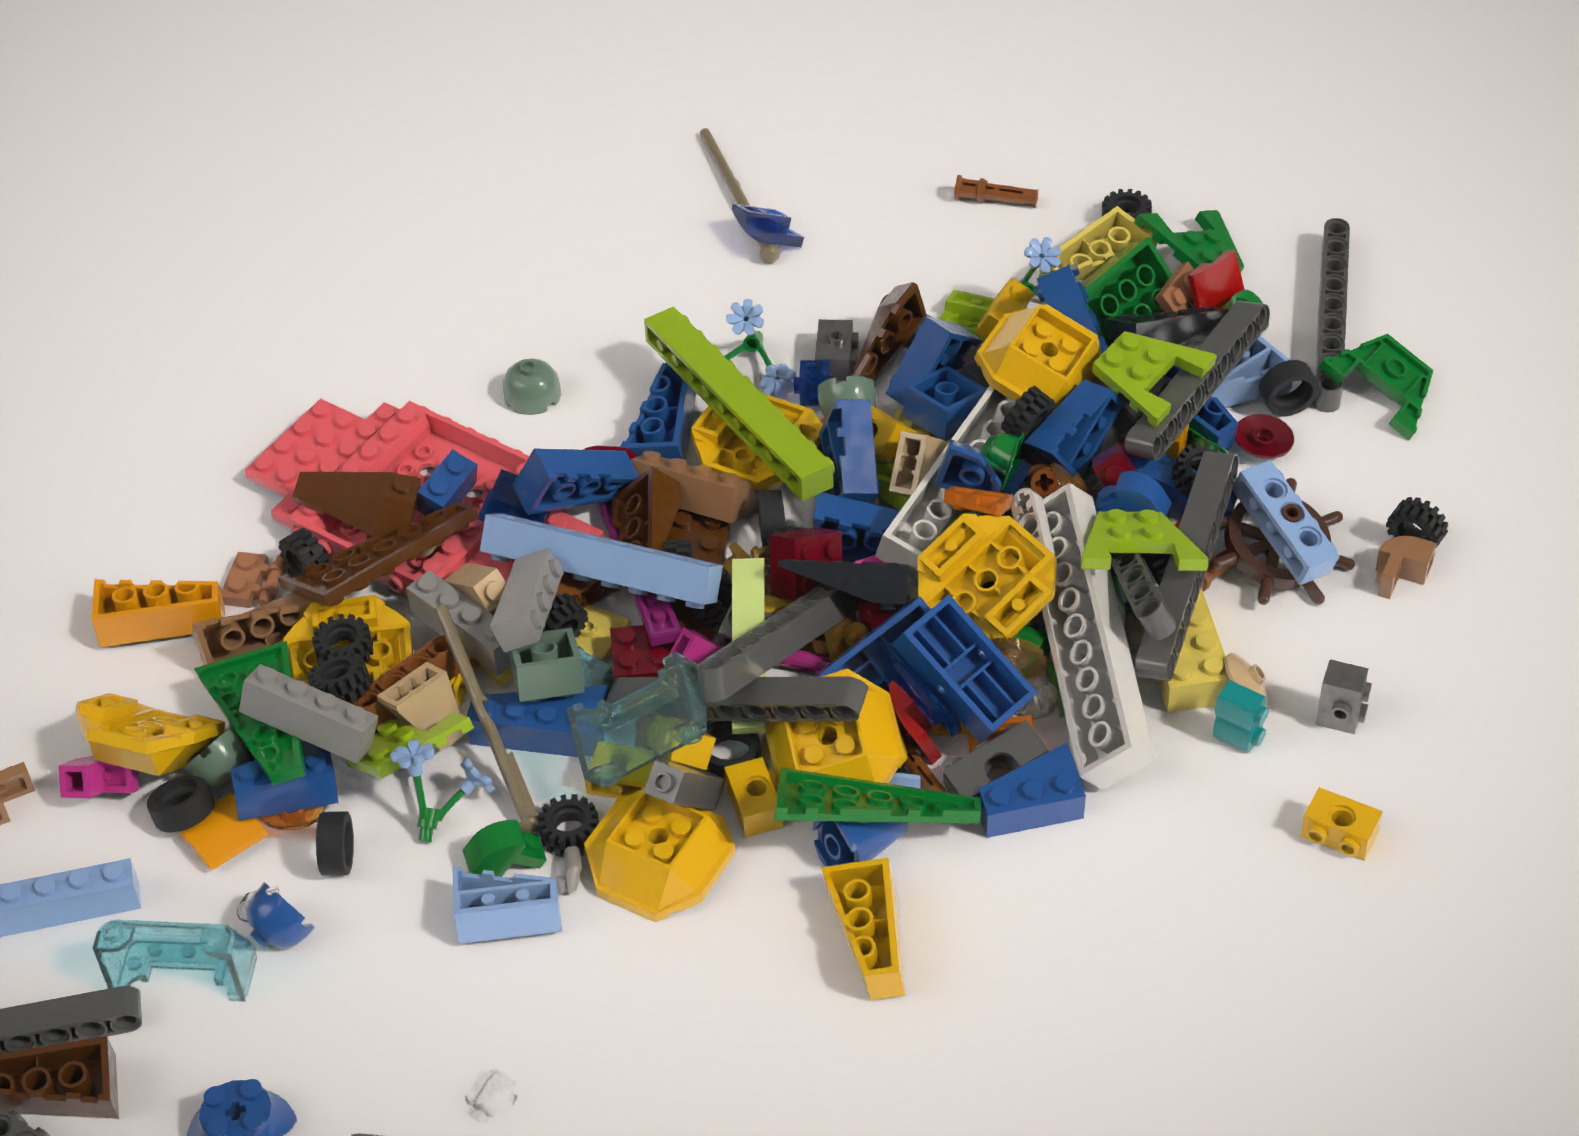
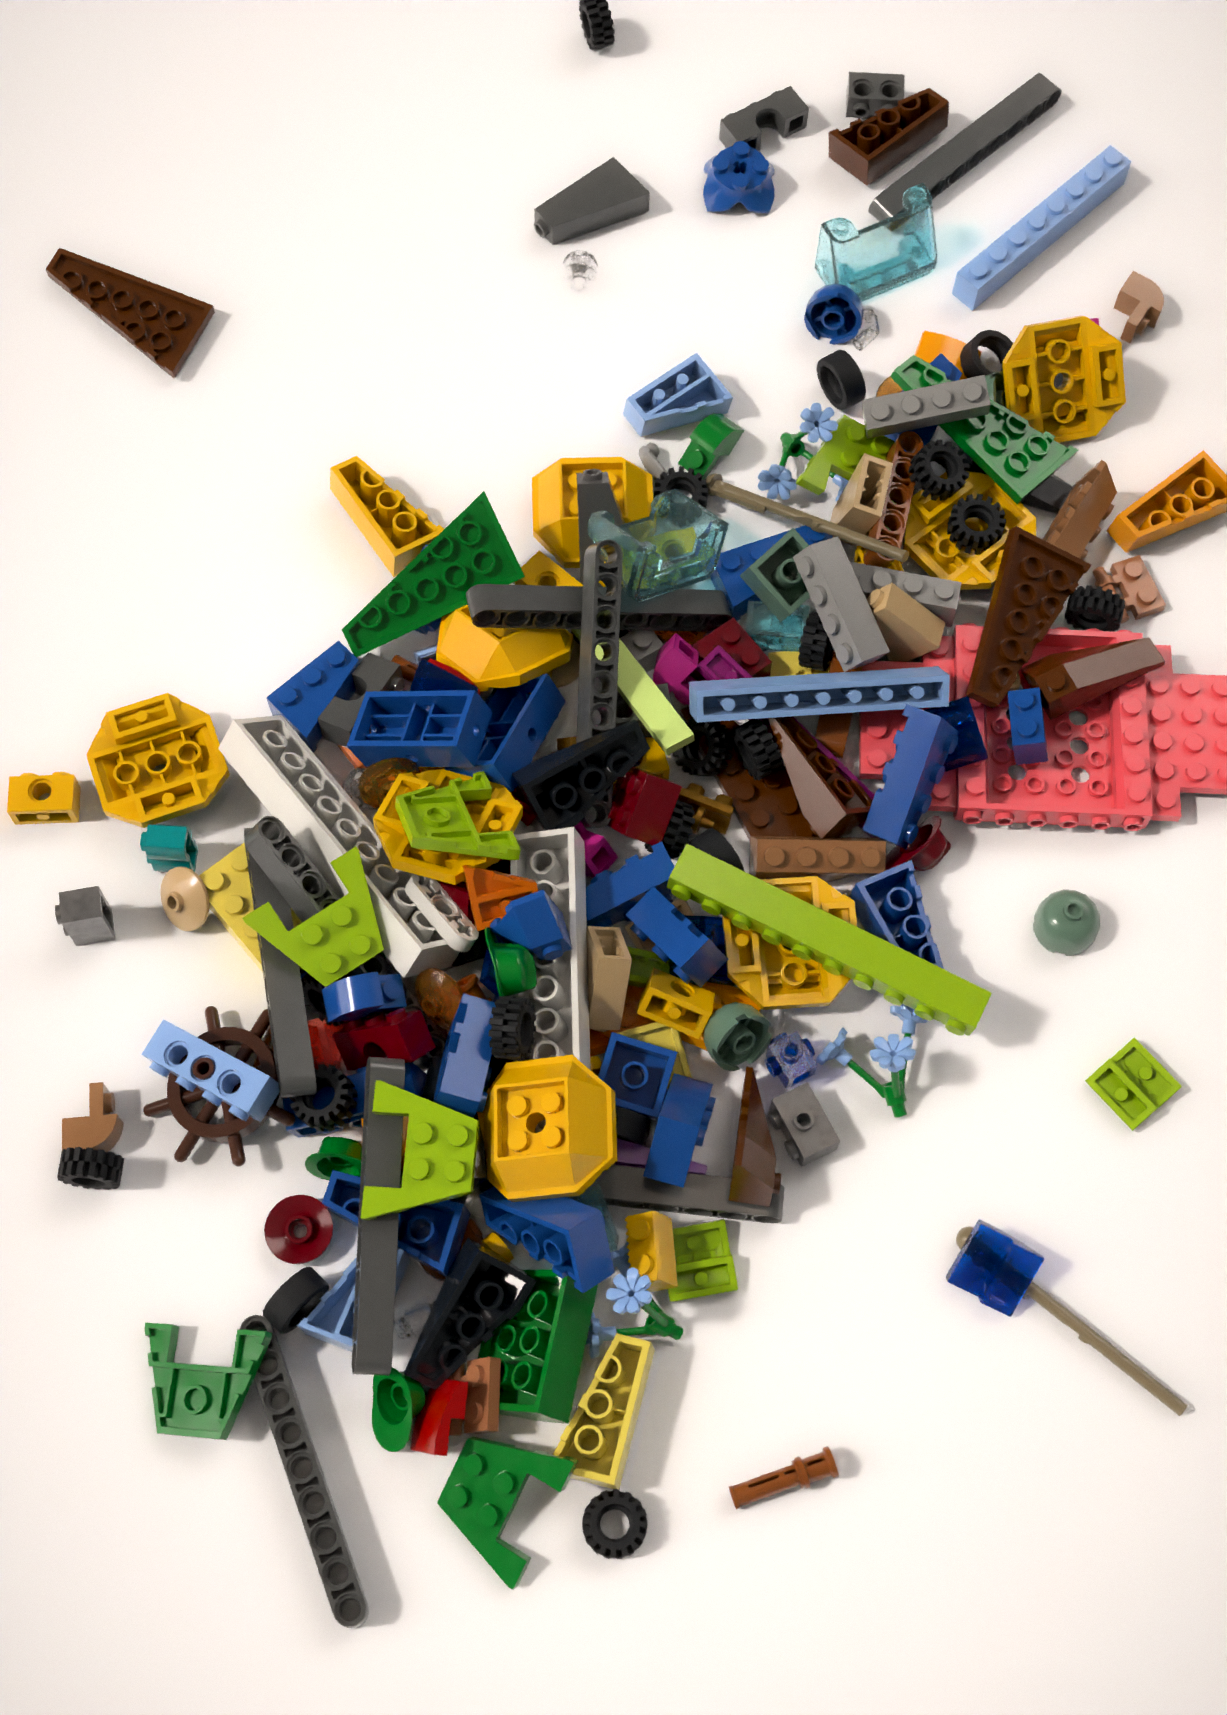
camera: 145 degrees right, 20 degrees up
(576, 287) = (1133, 1084): none -> lime slope
(998, 552) = (442, 822): none -> lime wing
(1219, 784) = (149, 735): none -> yellow piece

